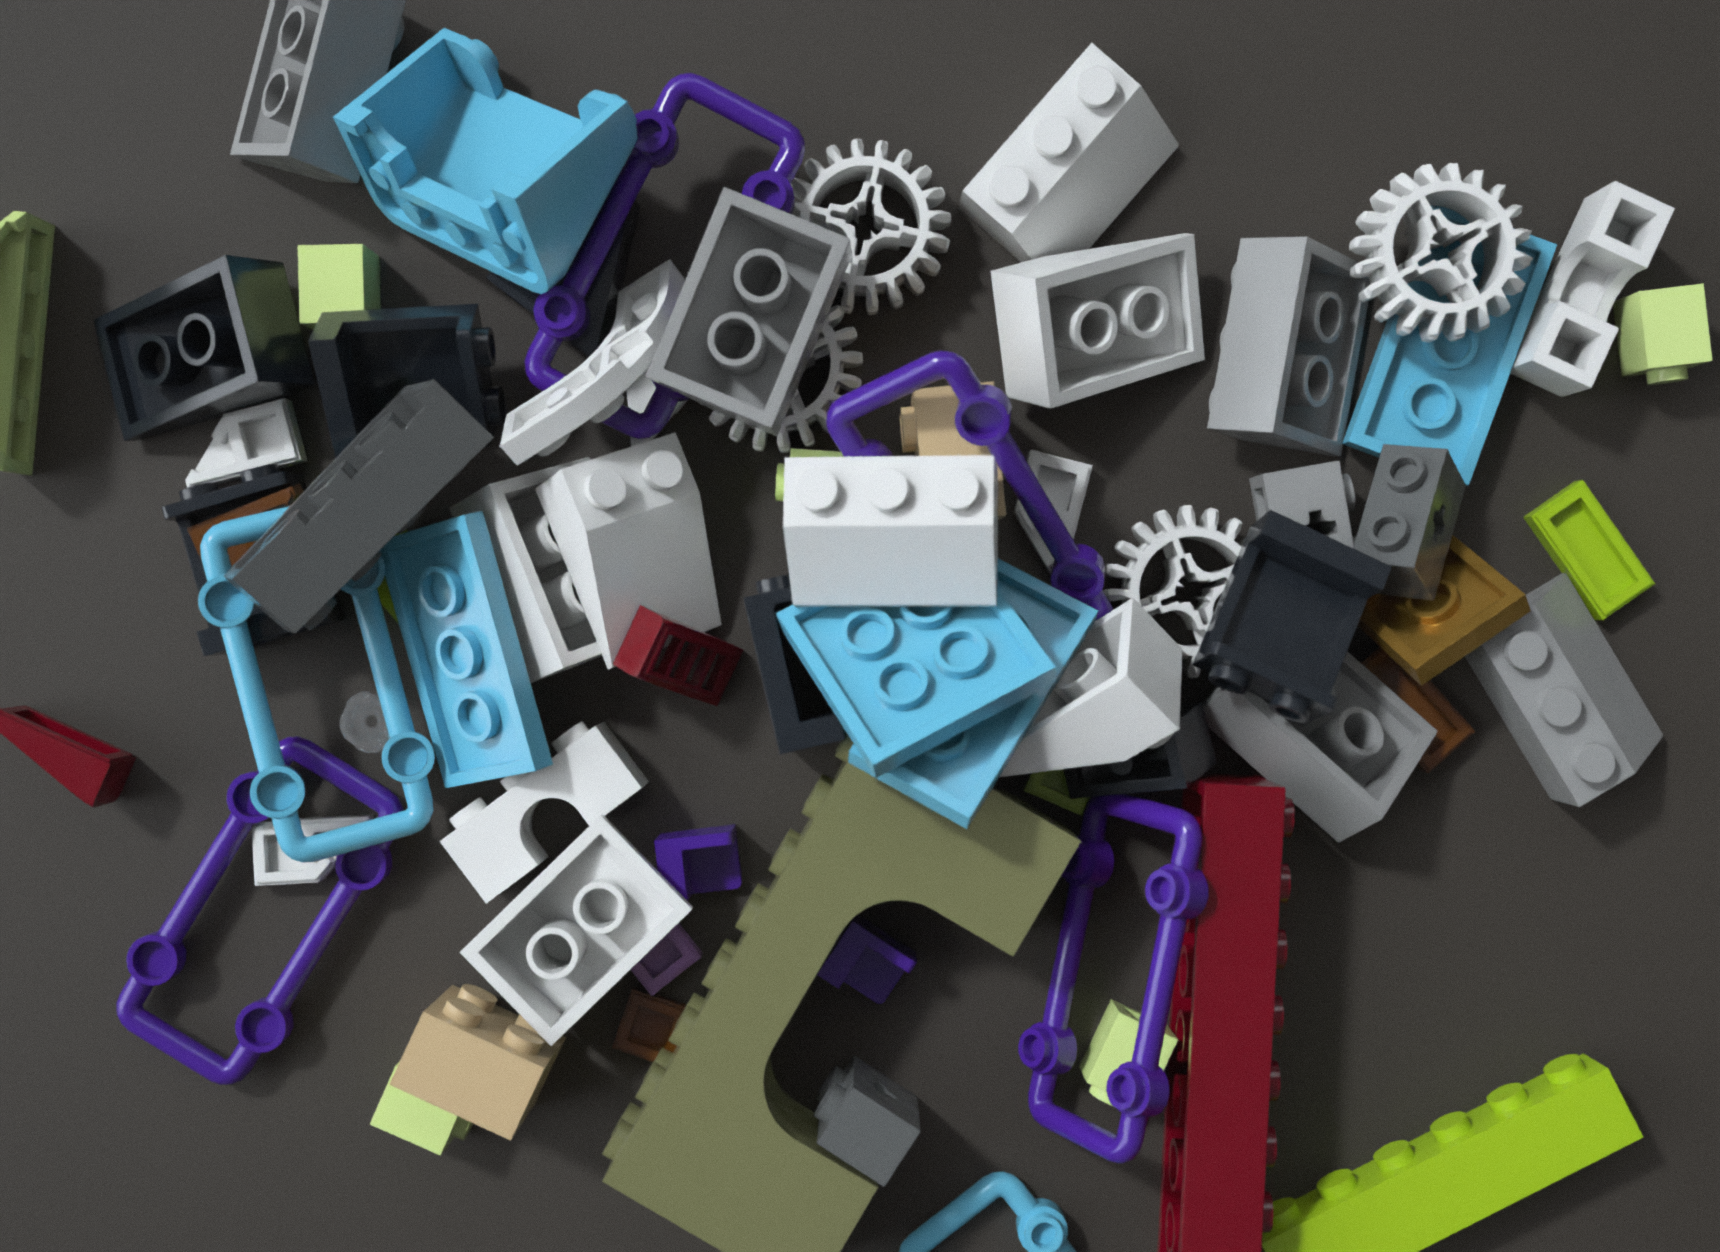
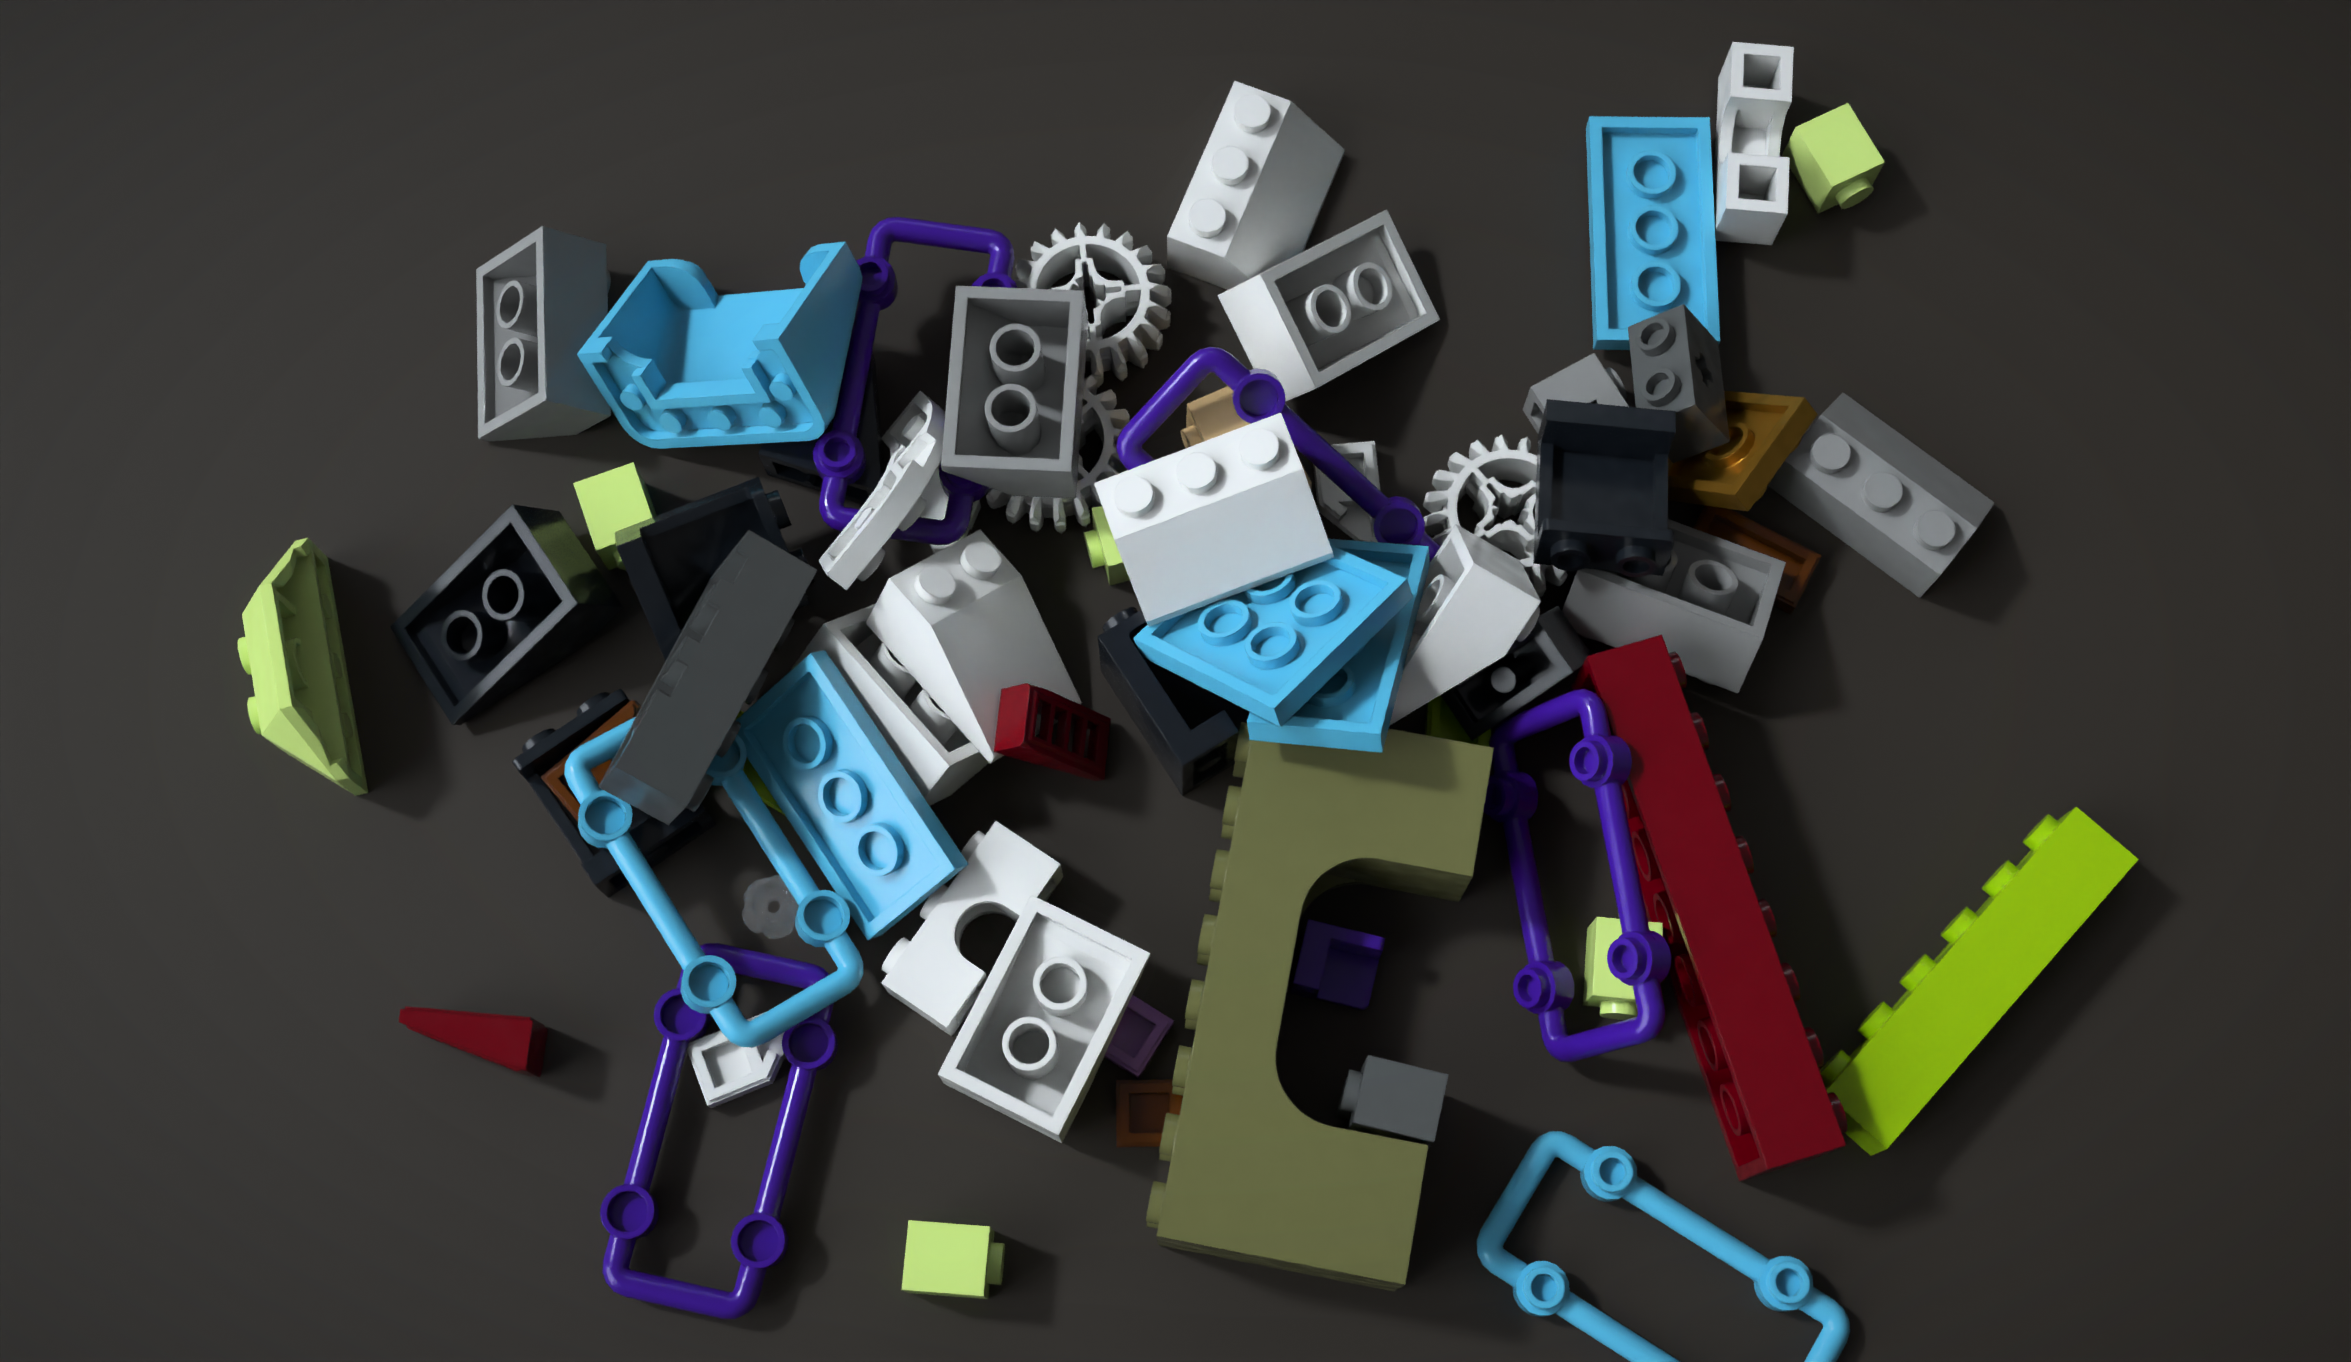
camera: 20 degrees left, 15 degrees down
(251, 440) = (571, 682): white tile -> none
(476, 1060) = (991, 1179): tan brick -> none
(700, 859) = (1143, 919): dark purple panel -> none
(1289, 346) = (1510, 277): light grey slope -> none
(1449, 276) = (1621, 180): white gear -> none
(1589, 550) = (1854, 365): lime tile -> none

